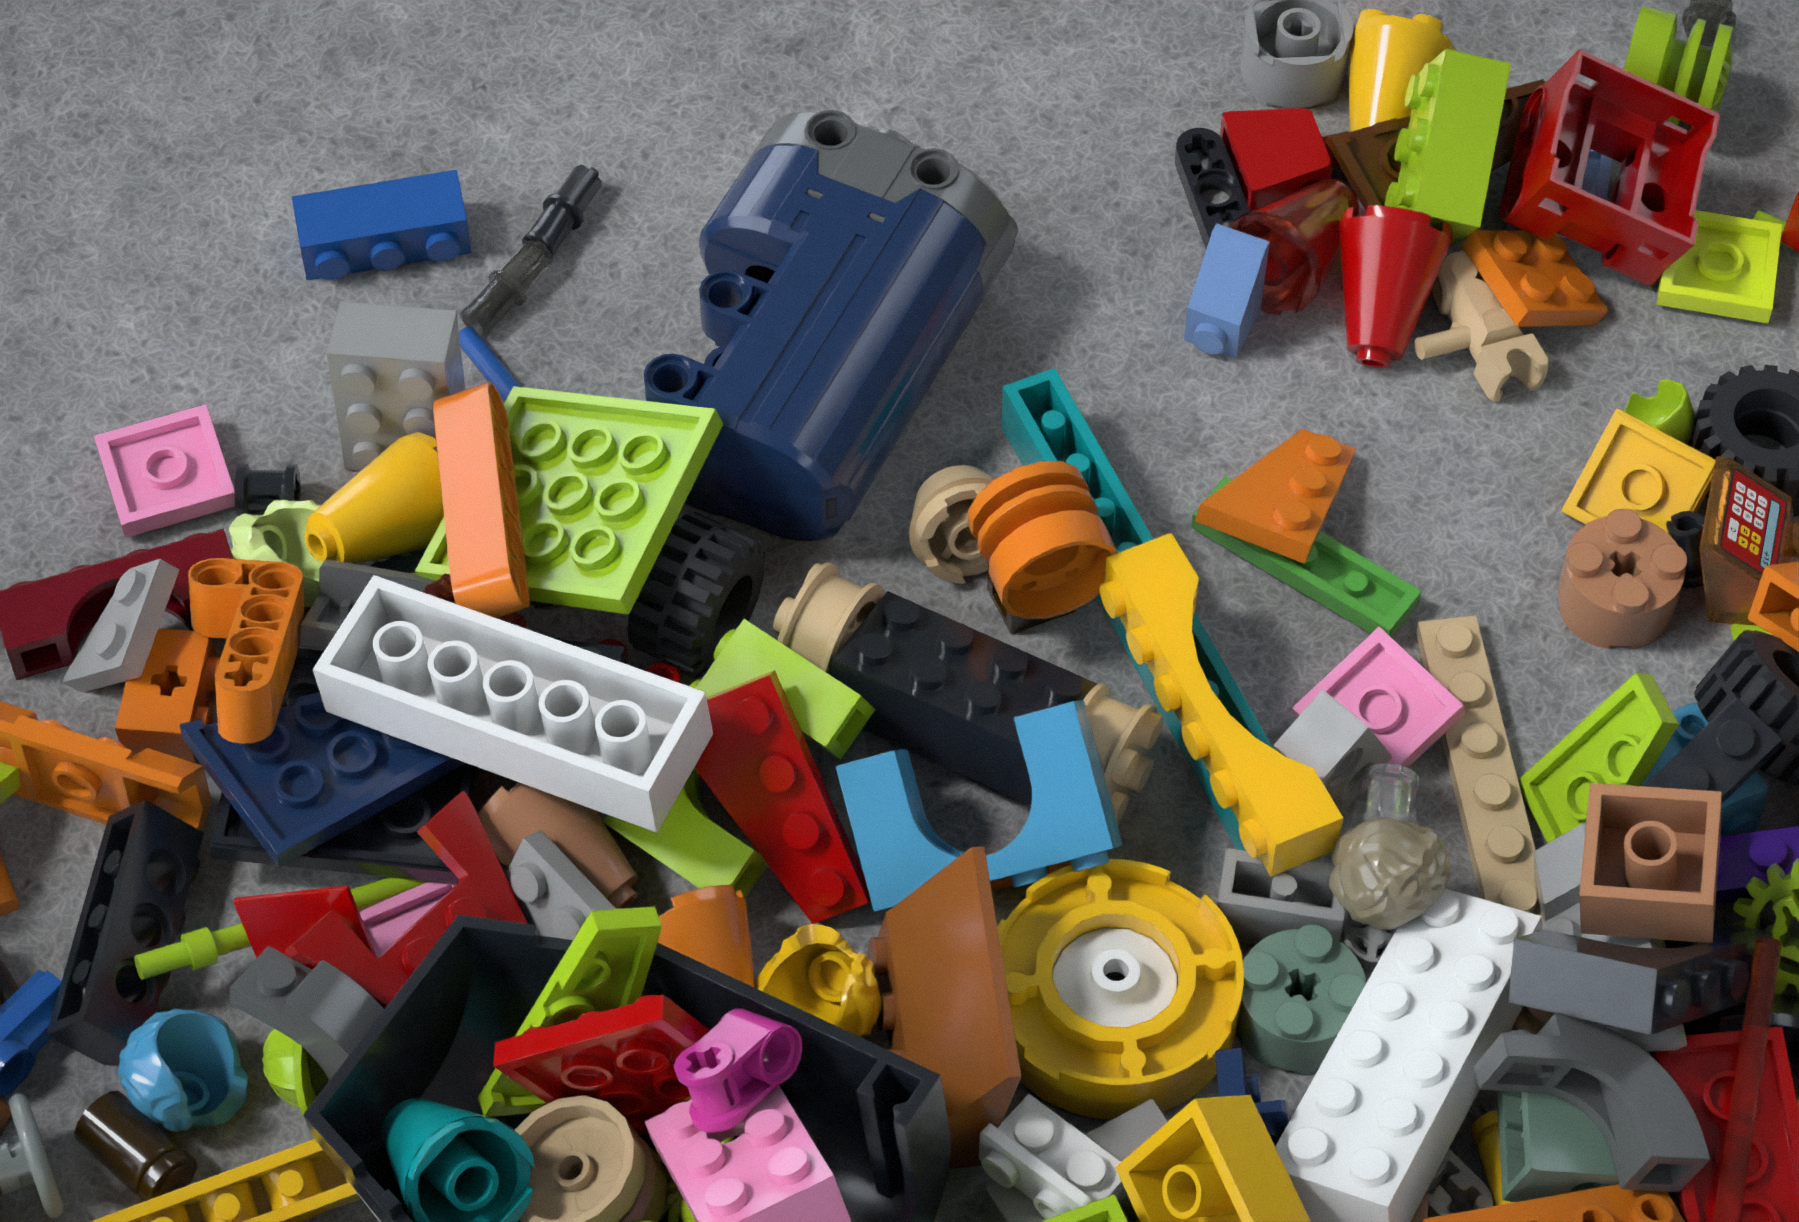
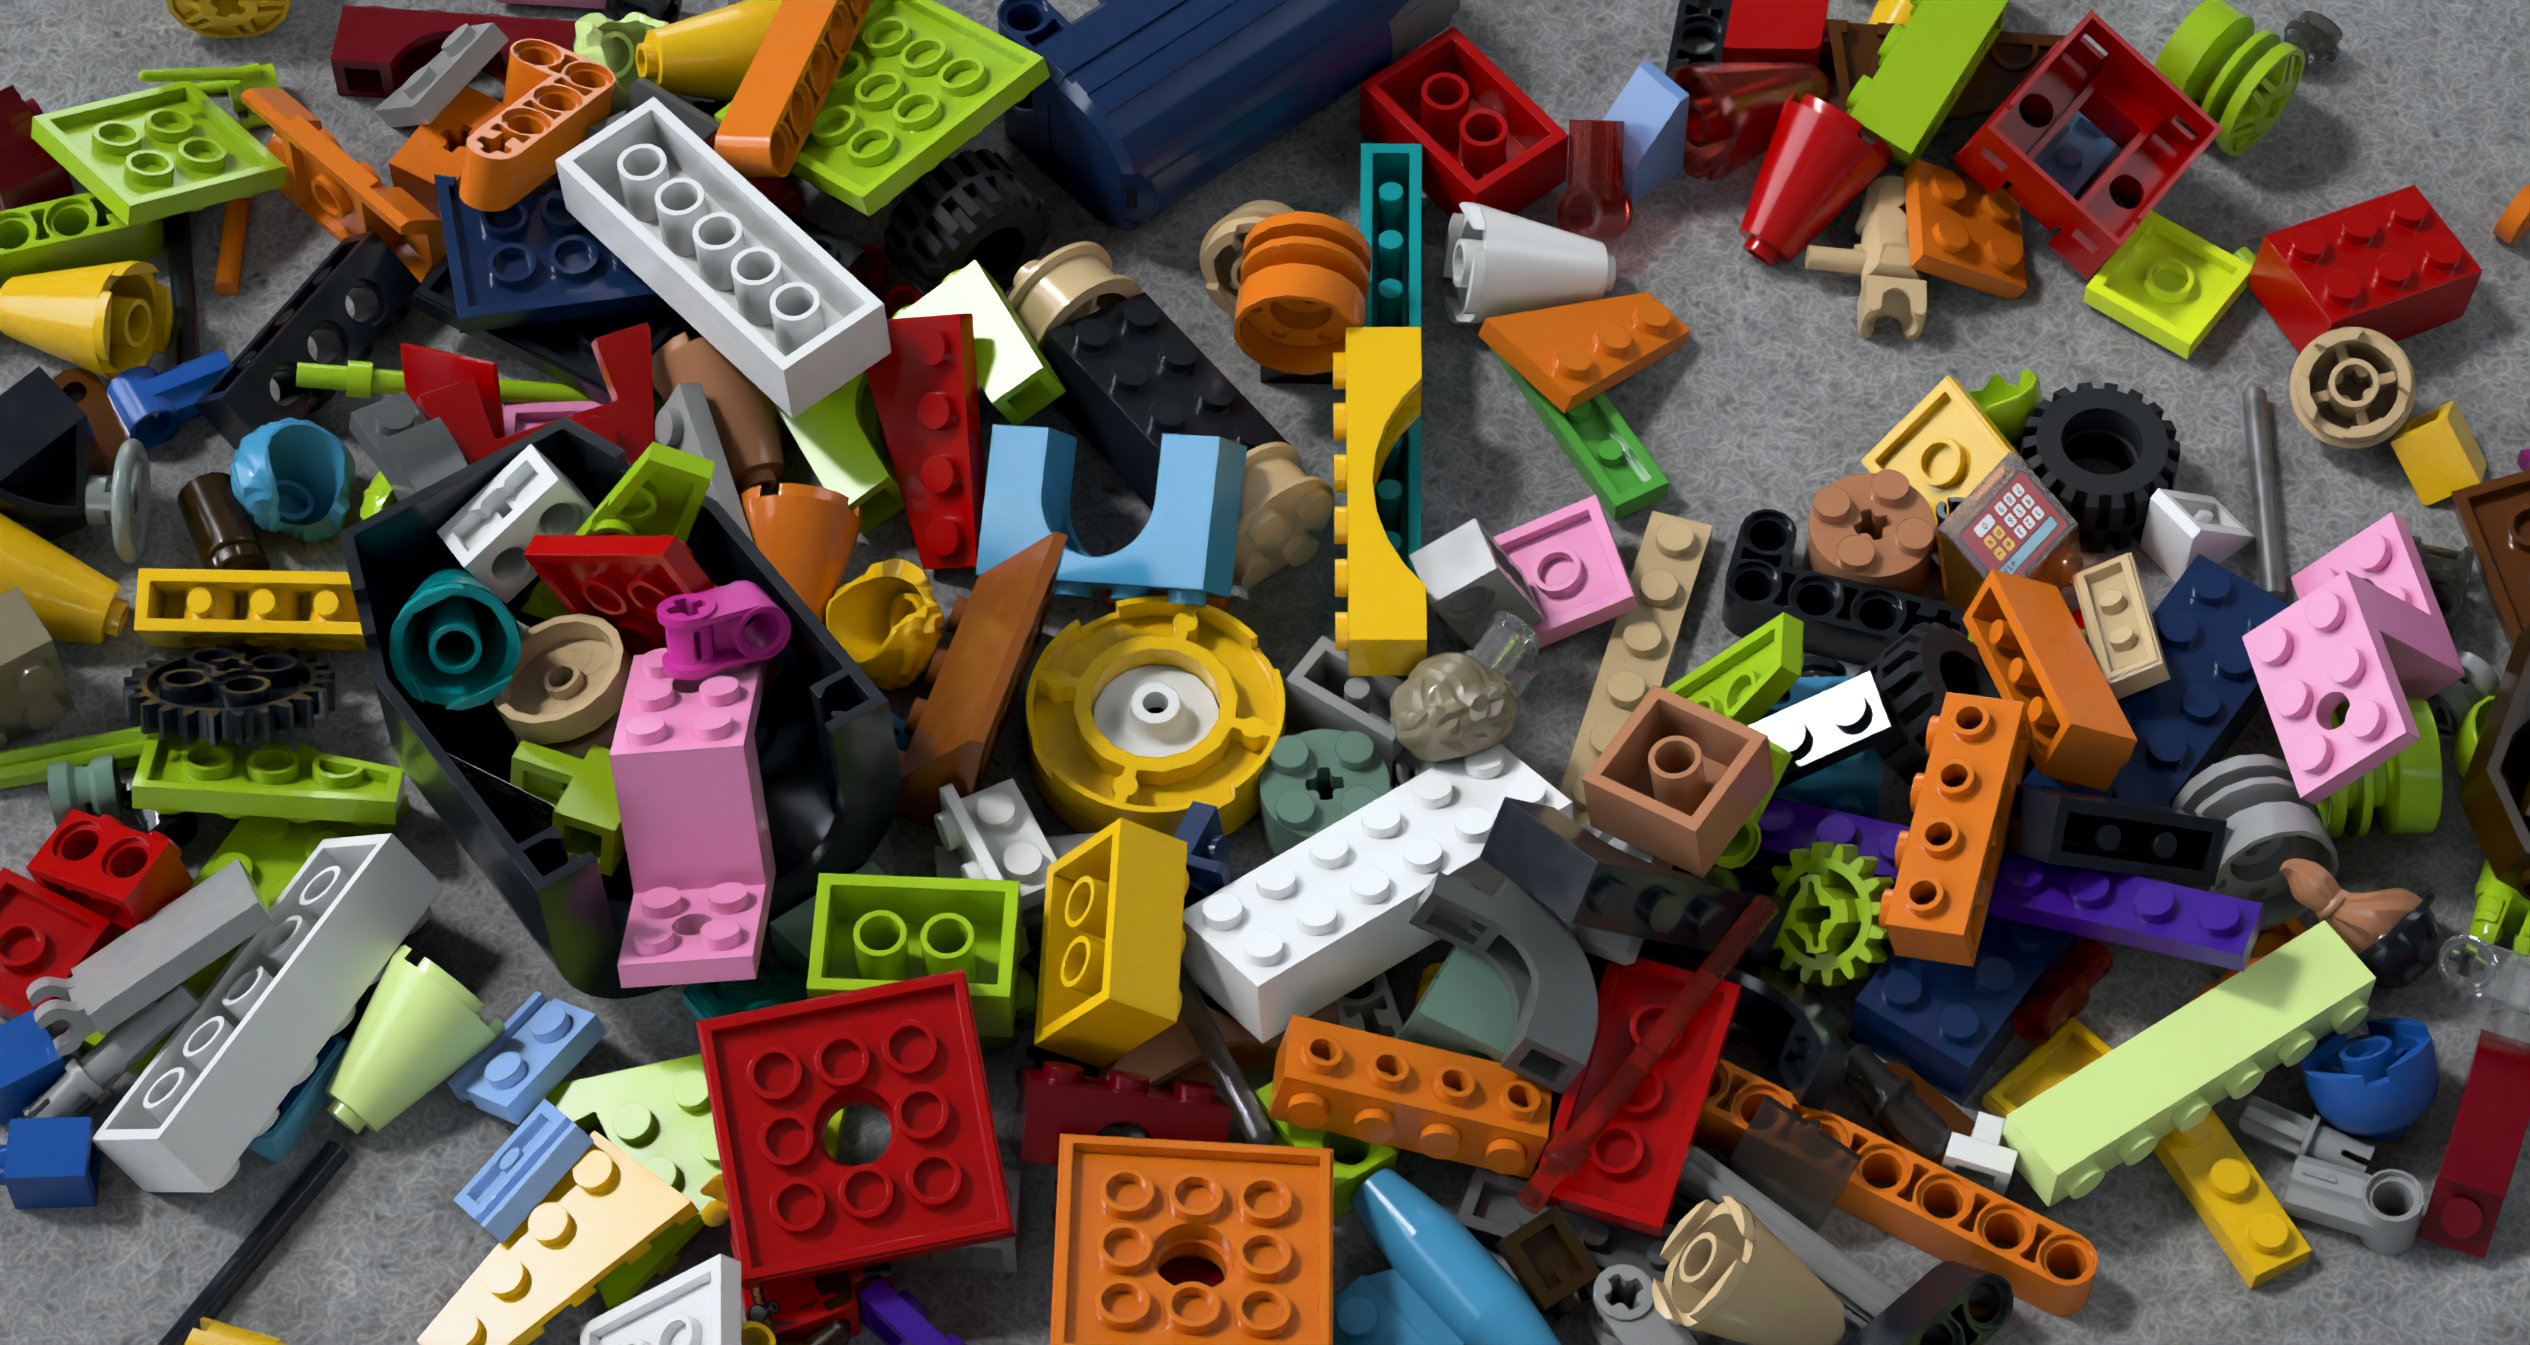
camera: 25 degrees right, 0 degrees up
(454, 1035) = (506, 515): none -> white brick
(1094, 336) = (1474, 126): none -> red brick
(1183, 448) = (1518, 265): none -> white cone
(1211, 338) = (1596, 178): none -> clear red piece
(1633, 646) = (1843, 604): none -> black beam

